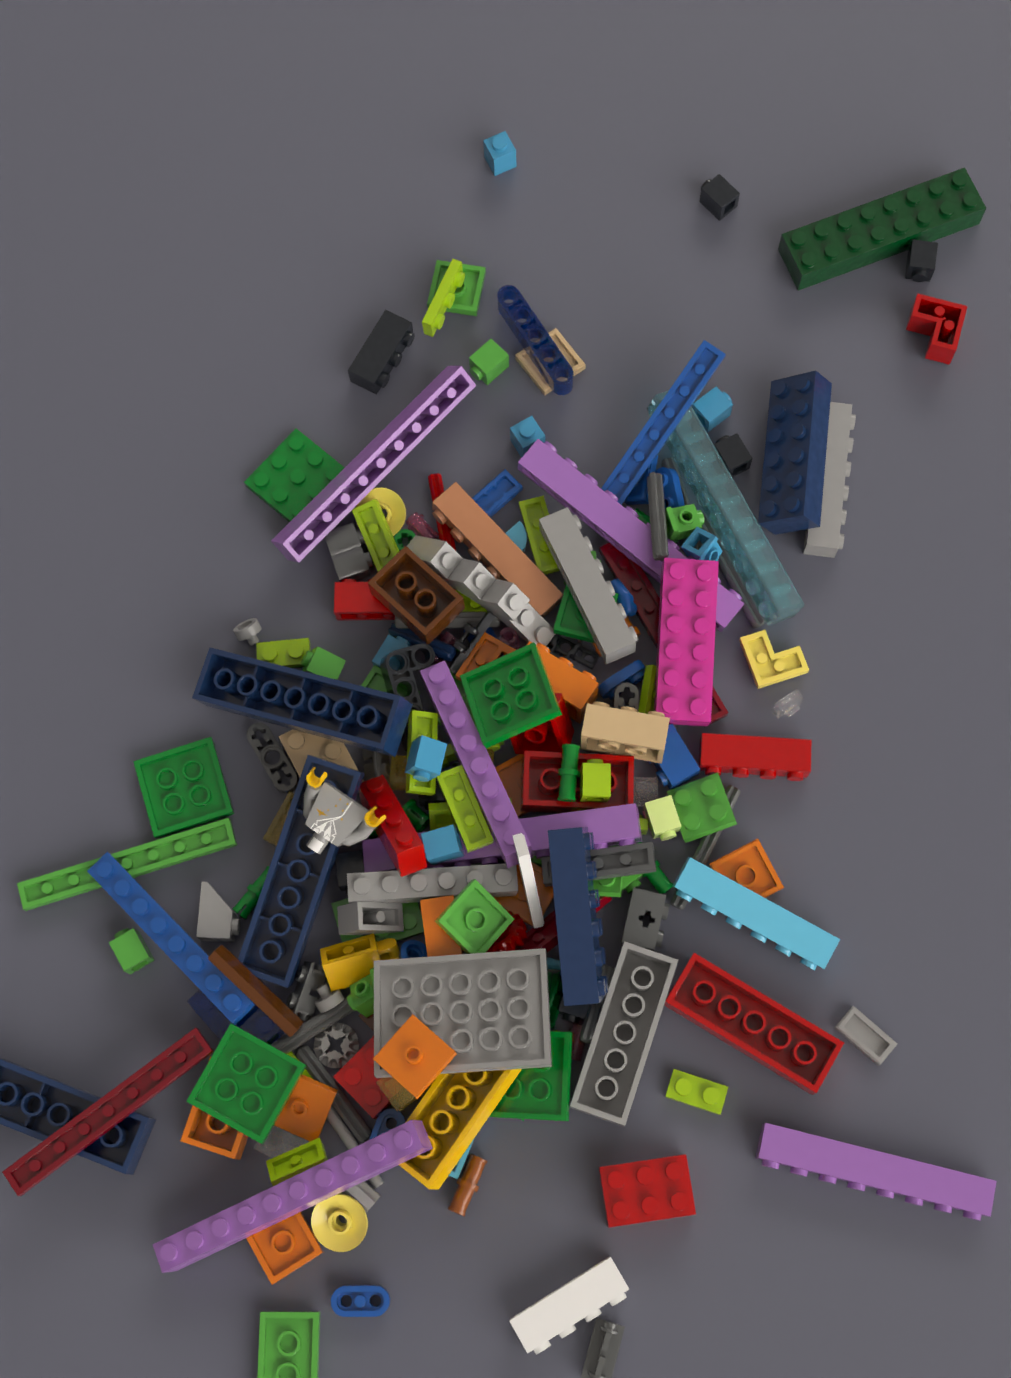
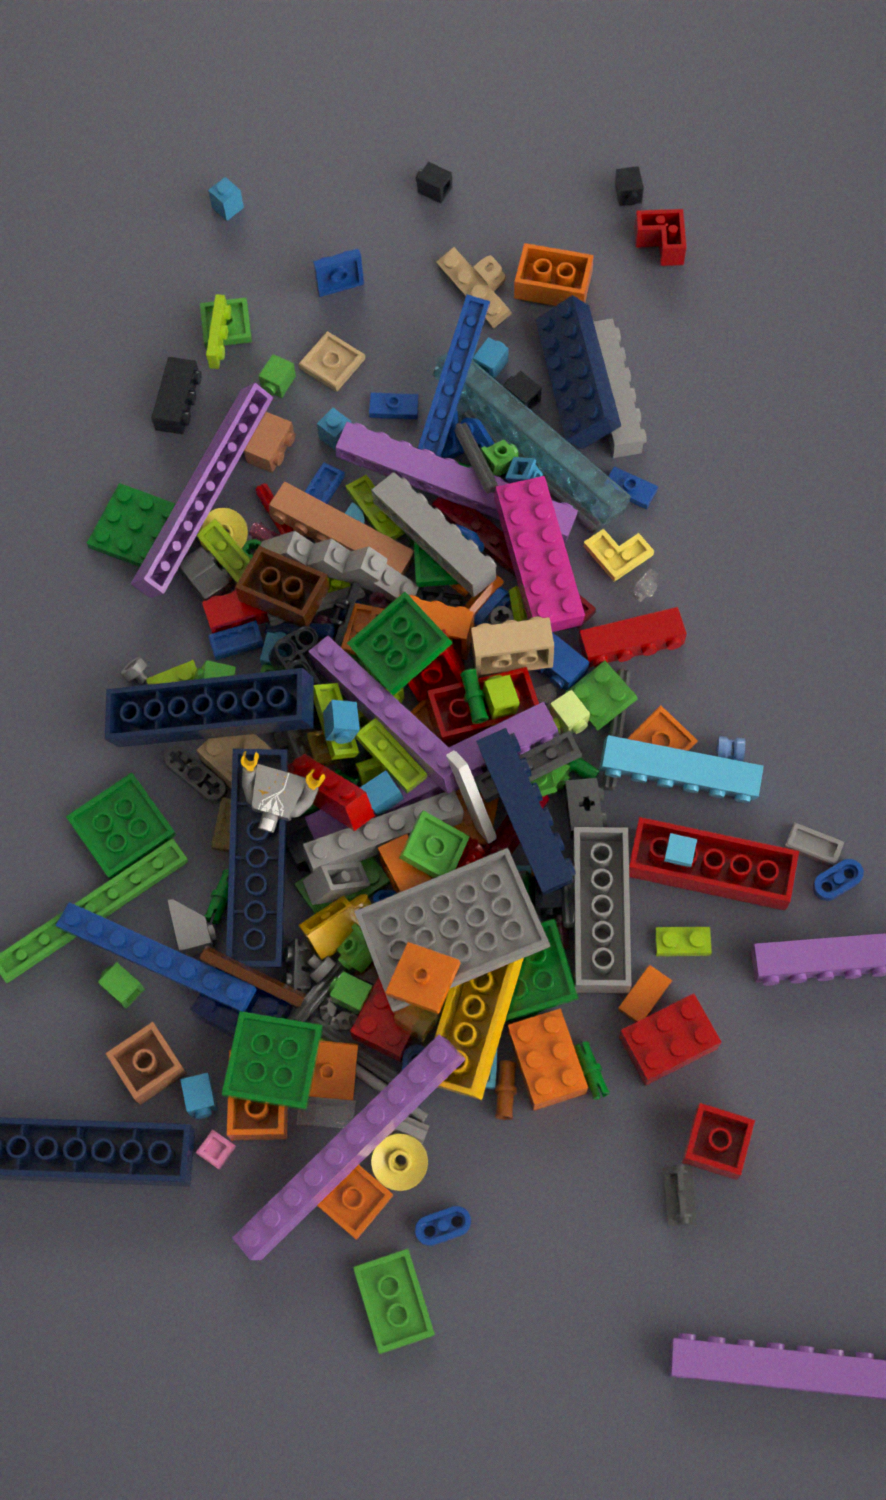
camera: 20 degrees left, 5 degrees down
(107, 1112) = (149, 1130): dark red plate -> none
(128, 1038) = (146, 1063): none -> nougat brick
(168, 1146) = (215, 1149): none -> bright pink tile
(173, 1095) = (199, 1095): none -> dark azure brick
(296, 1161) = (340, 1117): lime plate -> none
(346, 1035) = (349, 992): none -> bright green brick
(356, 630) = (235, 640): none -> blue plate
(458, 431) = (269, 442): none -> nougat brick
(517, 1169) = (547, 1059): none -> orange brick
(534, 329) = (317, 353): clear blue beam -> none
(558, 1194) = (591, 1071): none -> green pin
(568, 1305) = (635, 1163): white brick -> none
(586, 269) = (338, 272): none -> blue plate
(597, 429) = (394, 405): none -> blue plate
(604, 671) = (480, 599): none -> orange tile
(639, 1134) = (645, 994): none -> orange tile
(658, 1313) = (718, 1141): none -> red brick
(722, 1002) = (680, 850): none -> medium azure tile
(726, 322) = (477, 282): none -> tan plate
(806, 338) = (552, 275): none -> orange brick
(808, 905) = (725, 746): none -> medium blue wheel
(813, 594) = (640, 490): none -> blue plate
(876, 1081) = (836, 880): none -> blue plate
(881, 228) = (584, 169): dark green brick -> none

